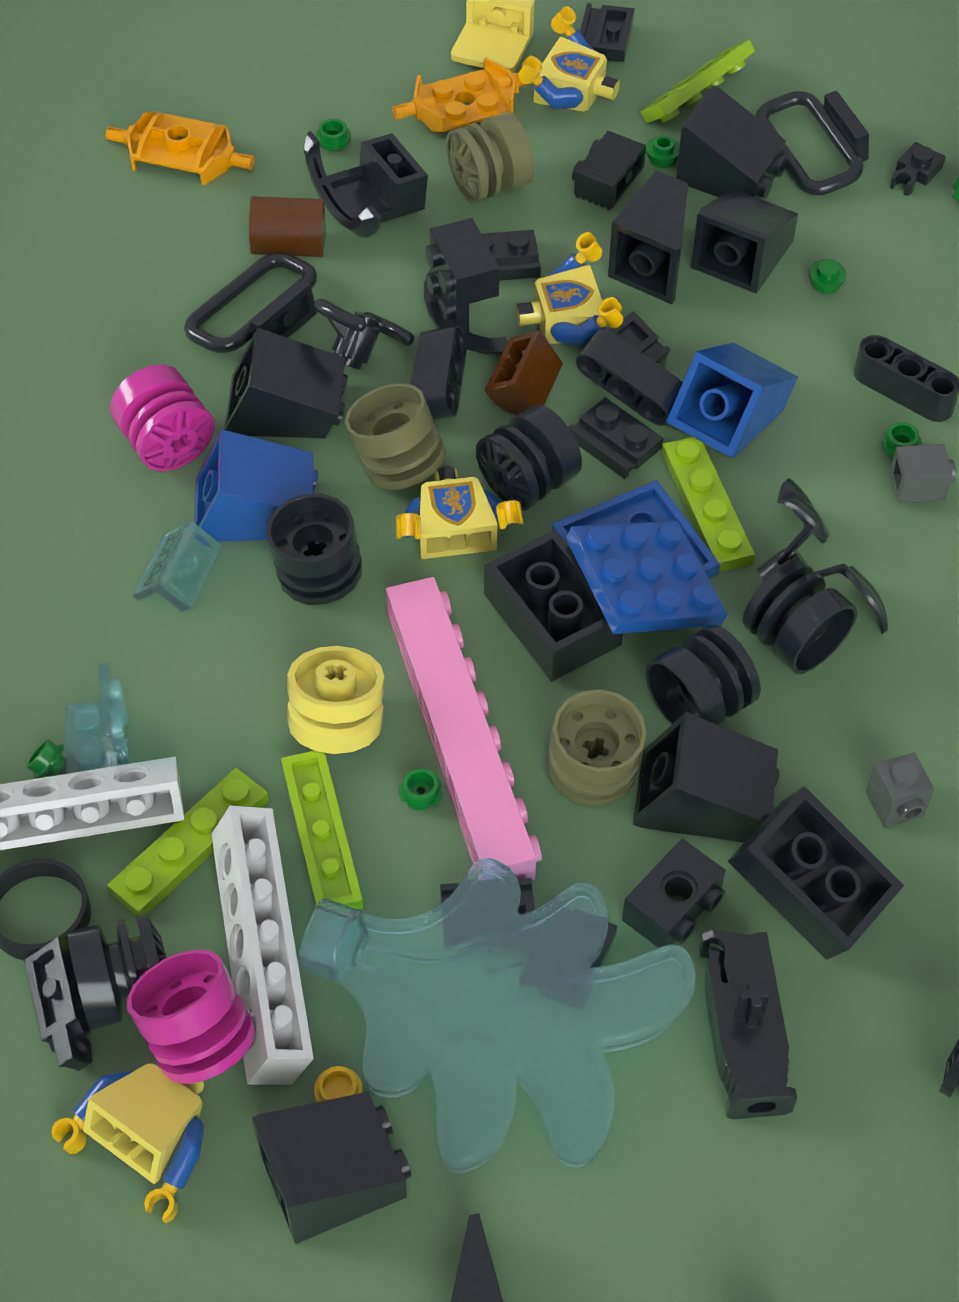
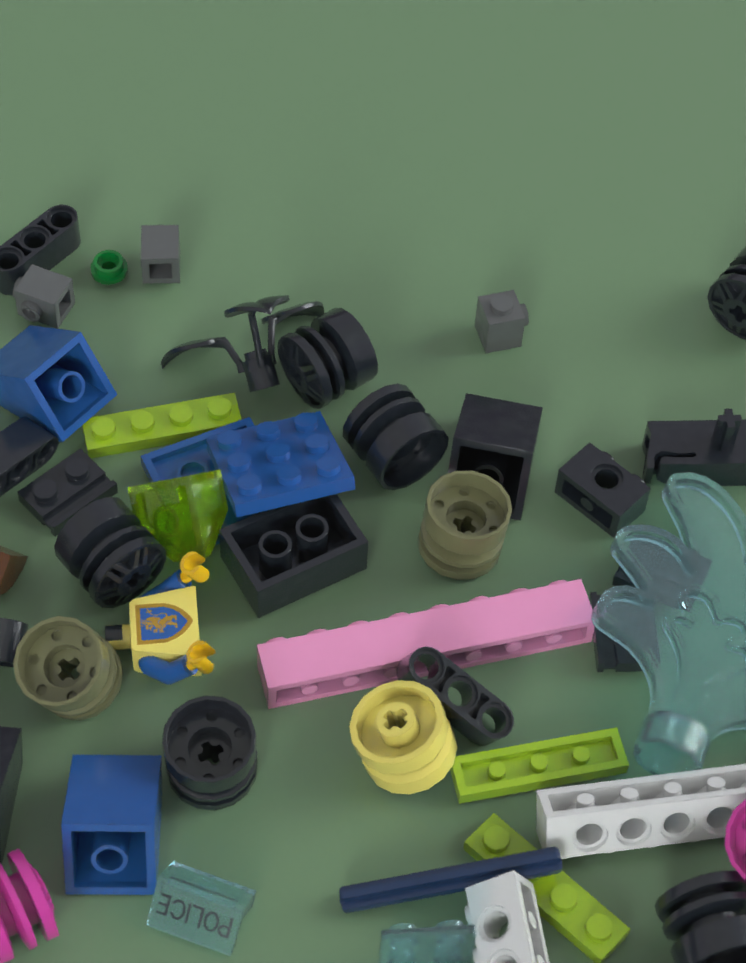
camera: 90 degrees left, 0 degrees up
(189, 753) = (447, 879): none -> dark blue axle
(381, 720) = (475, 697): none -> black beam
(420, 780) = (495, 672): green plate -> none
(580, 501) = (182, 512): none -> clear neon green slope
(816, 873) = (595, 379): black brick -> none
(844, 390) = (44, 296): none -> dark grey brick

